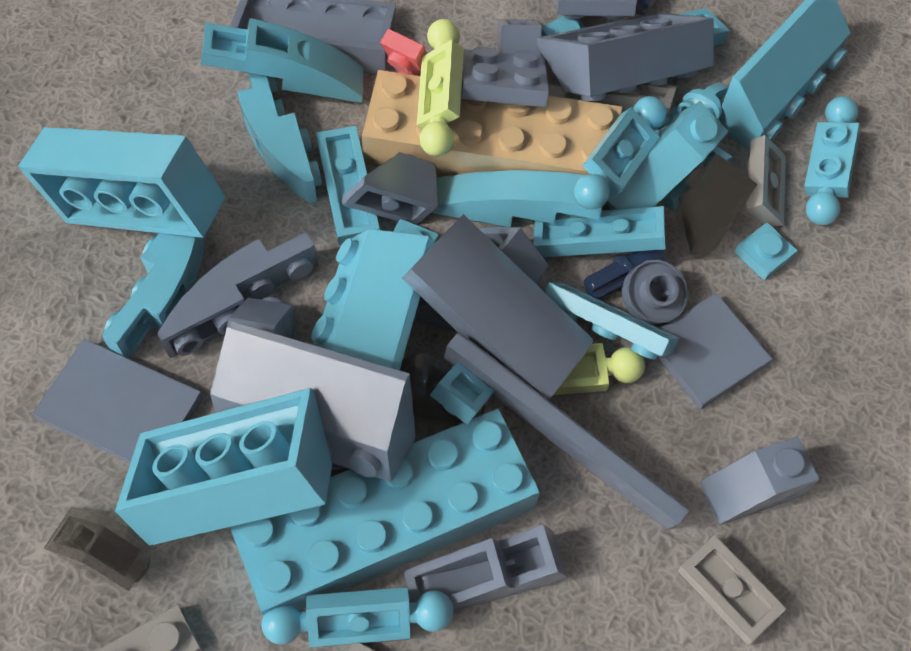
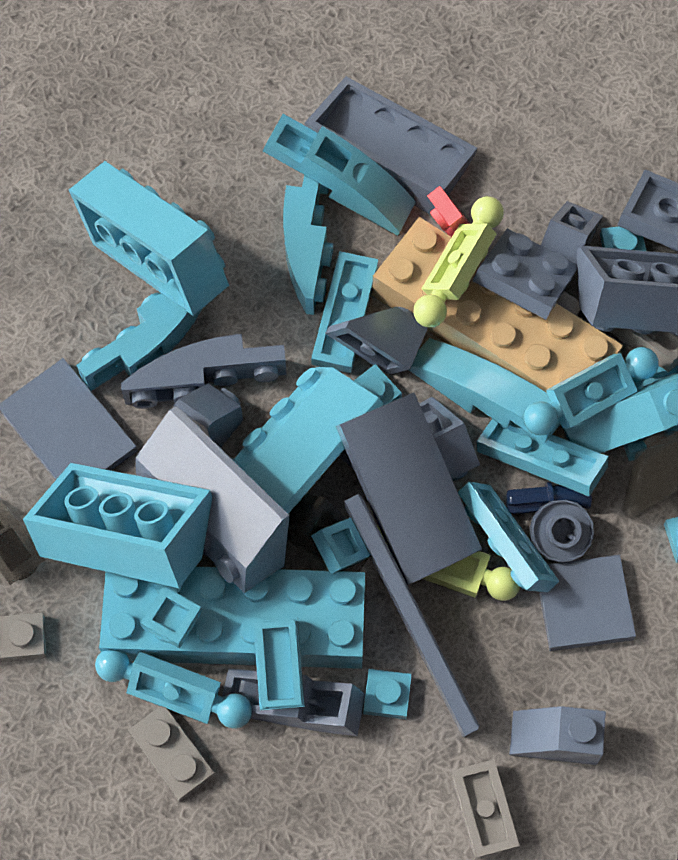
camera: 30 degrees right, 5 degrees up
(327, 541) = (171, 617): none -> medium azure plate
(462, 538) = (278, 663): none -> medium azure tile
(574, 521) = (387, 694): none -> medium azure plate

